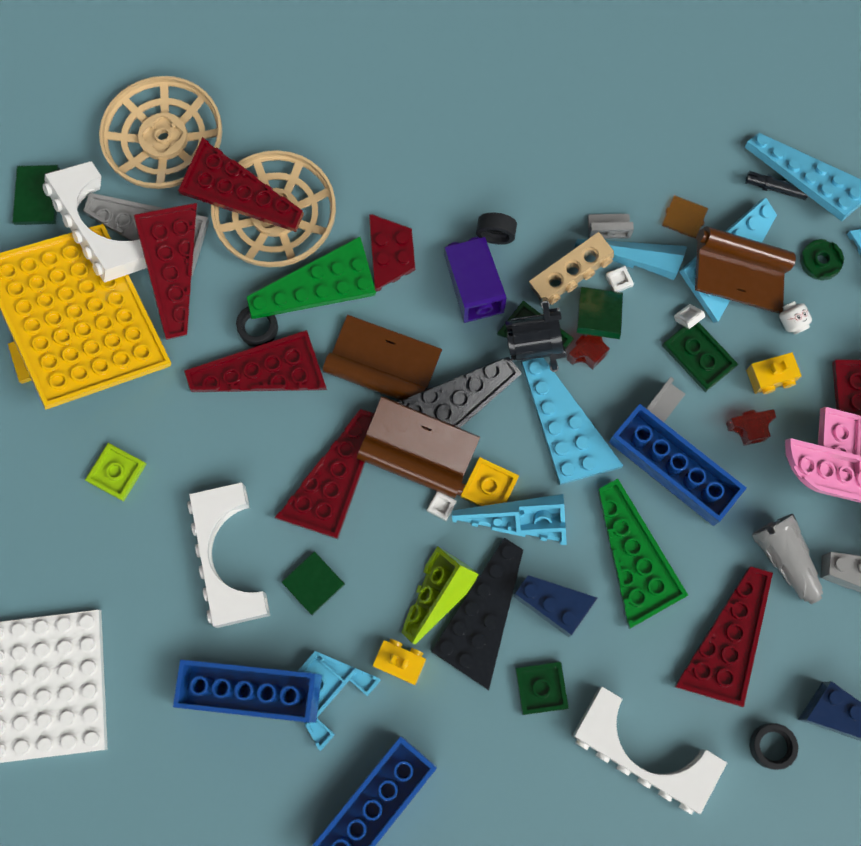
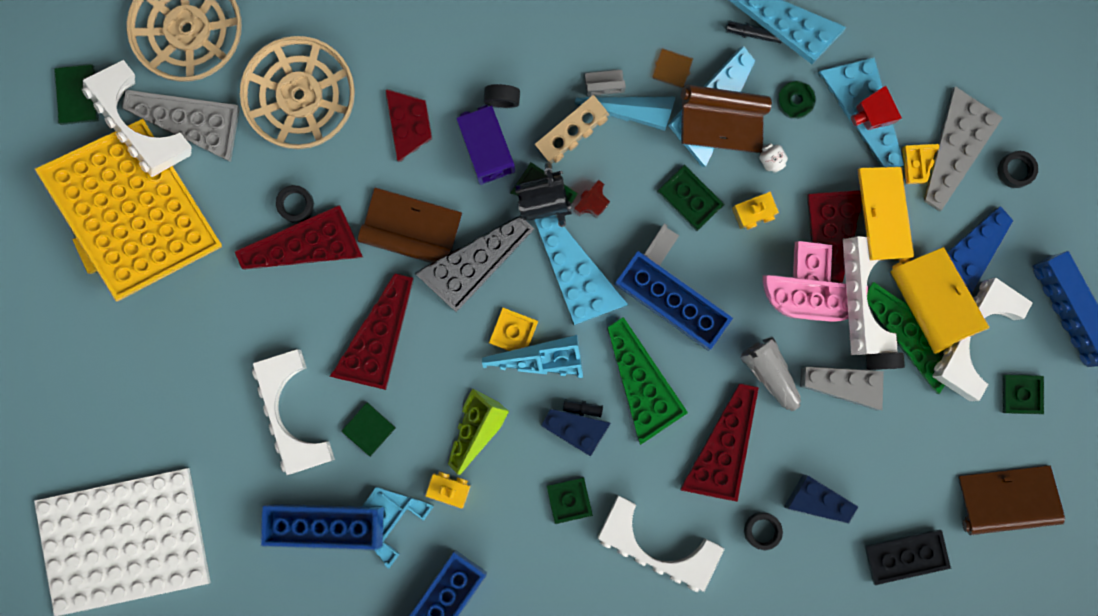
camera: 10 degrees left, 10 degrees up
(115, 472) = (185, 347): lime tile -> none
(168, 254) = (206, 144): dark red wing -> none
(229, 185) = (253, 75): dark red wing -> none
(328, 280) = (352, 157): green wing -> none
(421, 455) = (456, 311): door -> none
(441, 506) = (473, 353): white tile -> none
(477, 627) = (512, 453): black wing -> none
(565, 579) = (583, 408): none -> black pin
(600, 313) = (599, 168): dark green tile -> none
(619, 279) = (616, 133): white tile -> none
(689, 316) = (679, 163): white tile -> none
(752, 426) = (738, 259): clear red brick -> none

